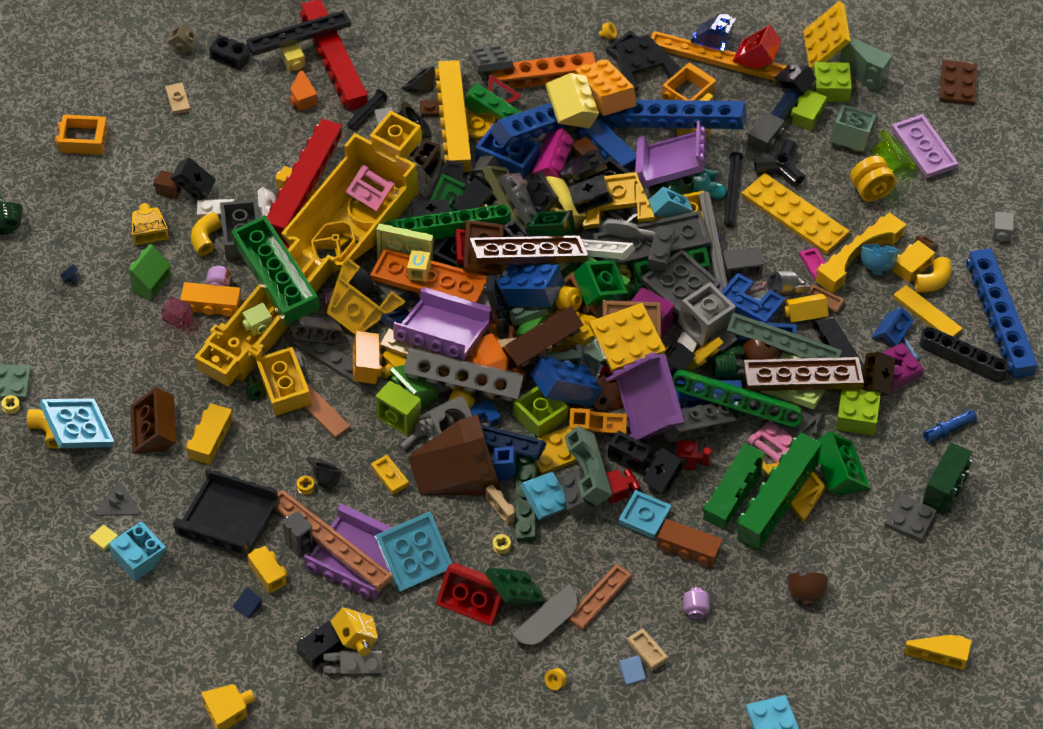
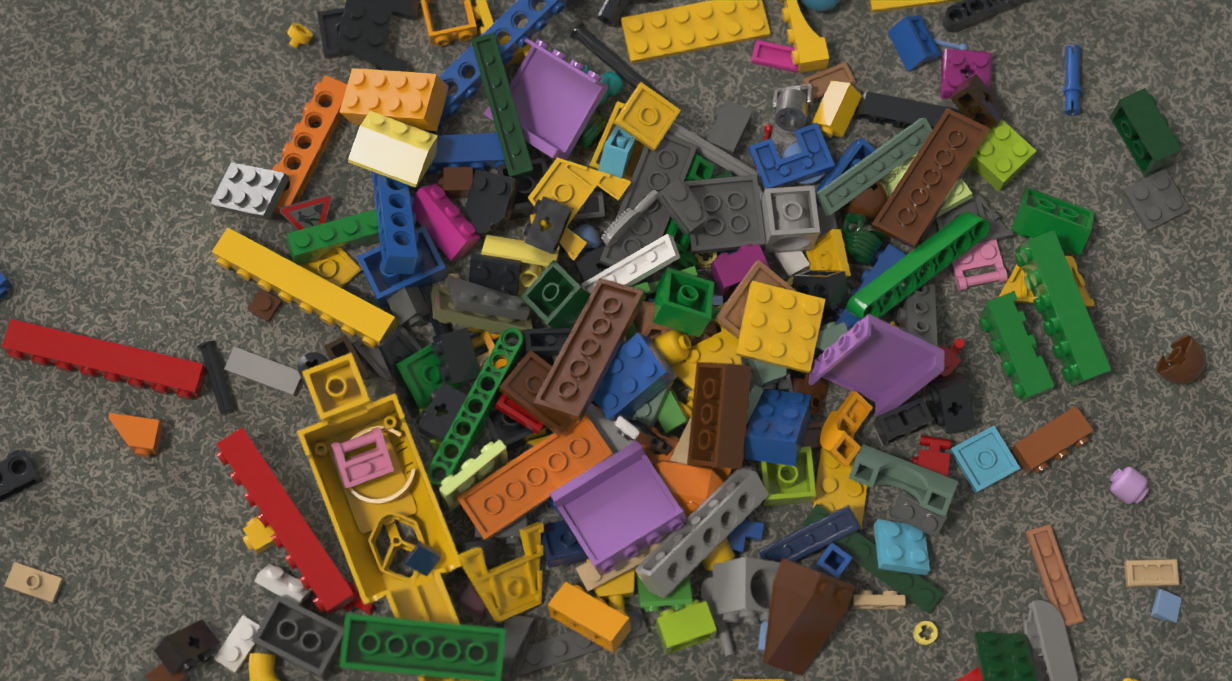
camera: 55 degrees left, 20 degrees up
(293, 57) = (73, 408): light yellow brick -> none
(298, 33) = (52, 382): black plate -> none
(333, 248) = (423, 558): none -> dark blue tile
(409, 113) = (275, 338): black piece -> none
(419, 266) = (520, 479): light yellow brick -> none
(422, 81) = (217, 287): black slope -> none
(646, 133) = (502, 105): none -> dark green plate
(703, 201) = (647, 116): none -> yellow tile

